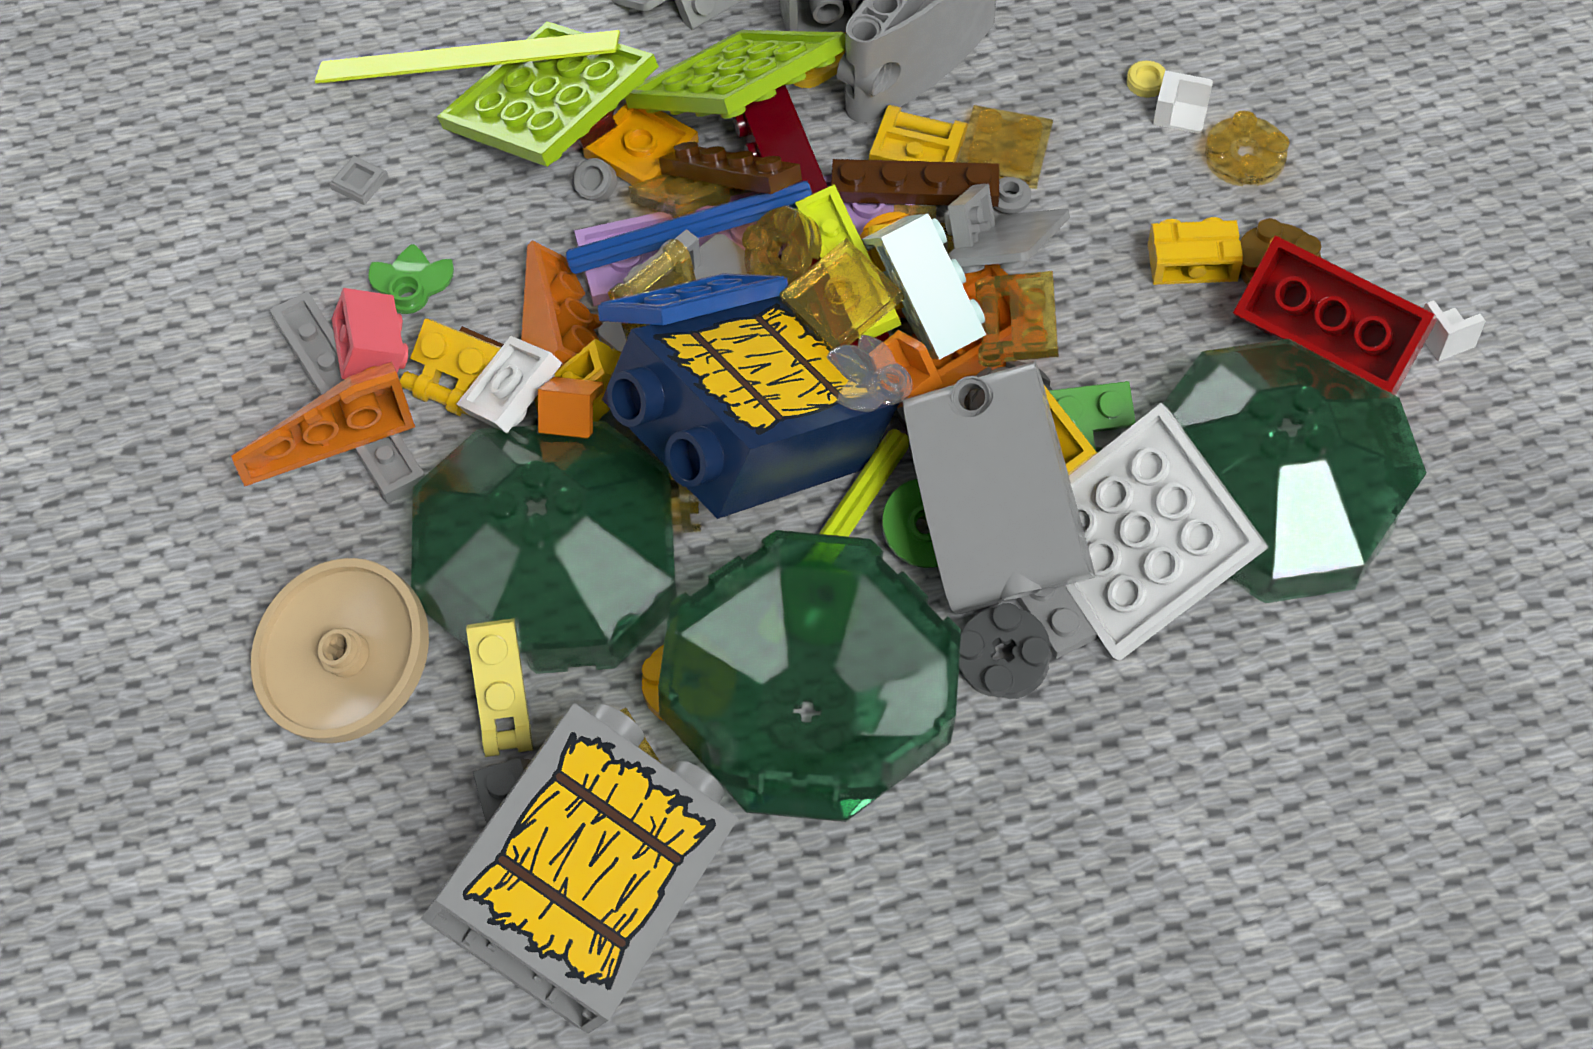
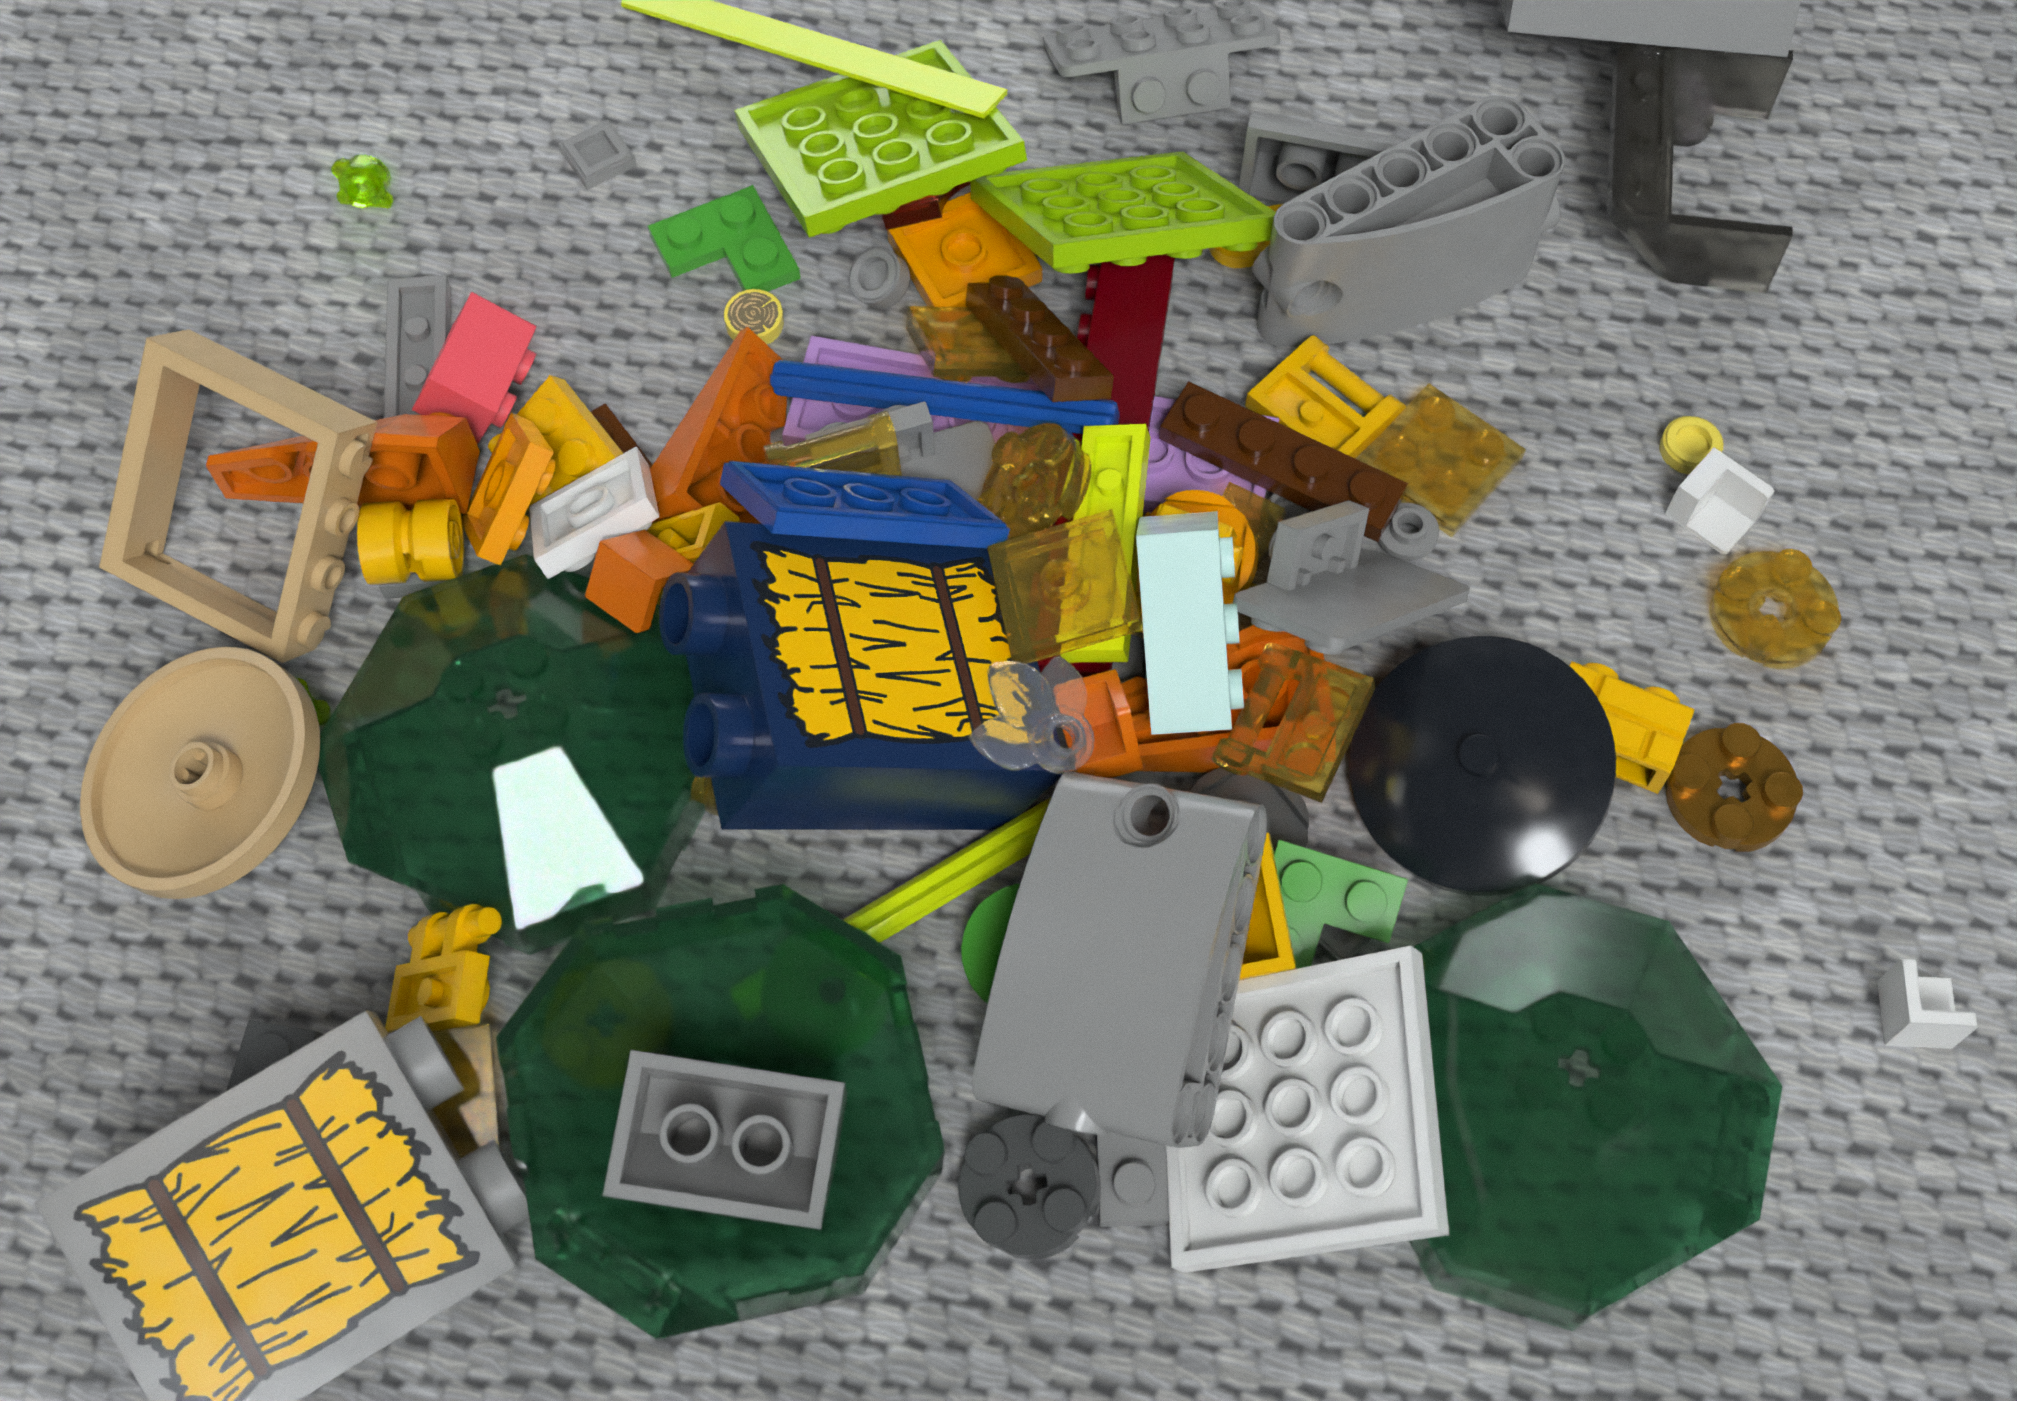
camera: 25 degrees right, 5 degrees up
(197, 466) = (151, 469): none -> tan window
(208, 249) = (363, 181): none -> clear neon green plate
(398, 452) = (405, 541): none -> yellow wheel
(411, 274) = (586, 305): bright green plate -> none
(442, 394) = (513, 474): none -> light orange plate
(480, 189) = (728, 228): none -> bright green plate
(499, 685) = (355, 916): light yellow plate -> none
(522, 232) = (755, 310): none -> tile
(591, 683) = (445, 972): none -> yellow plate
(820, 691) = (726, 1140): none -> light grey slope
(1135, 302) = (1483, 765): none -> black dish
(1335, 314) = (1756, 919): red brick -> none

